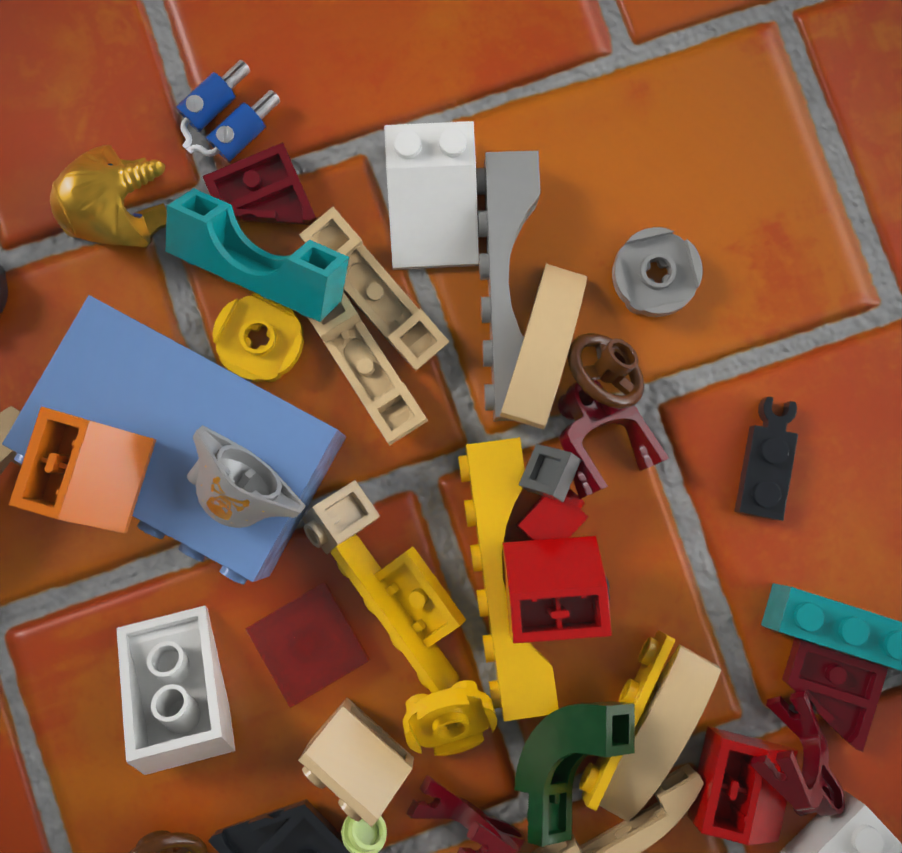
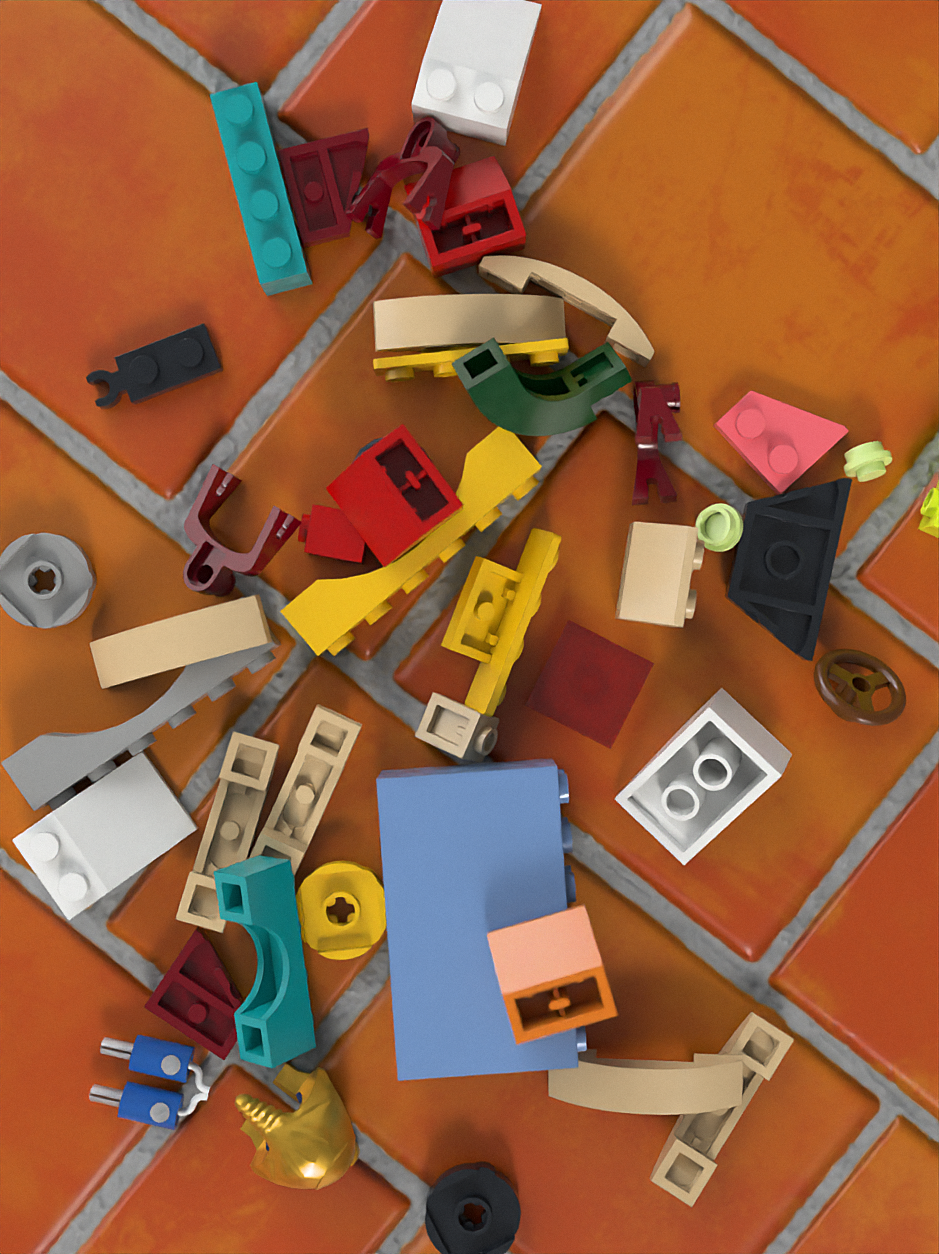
camera: 115 degrees left, 5 degrees up
(237, 484) = (479, 833): light grey hat -> none
(449, 719) = (551, 516): yellow plate -> none
(550, 472) = (294, 564): dark grey plate -> none
(614, 363) = (161, 567): reddish brown piece -> none

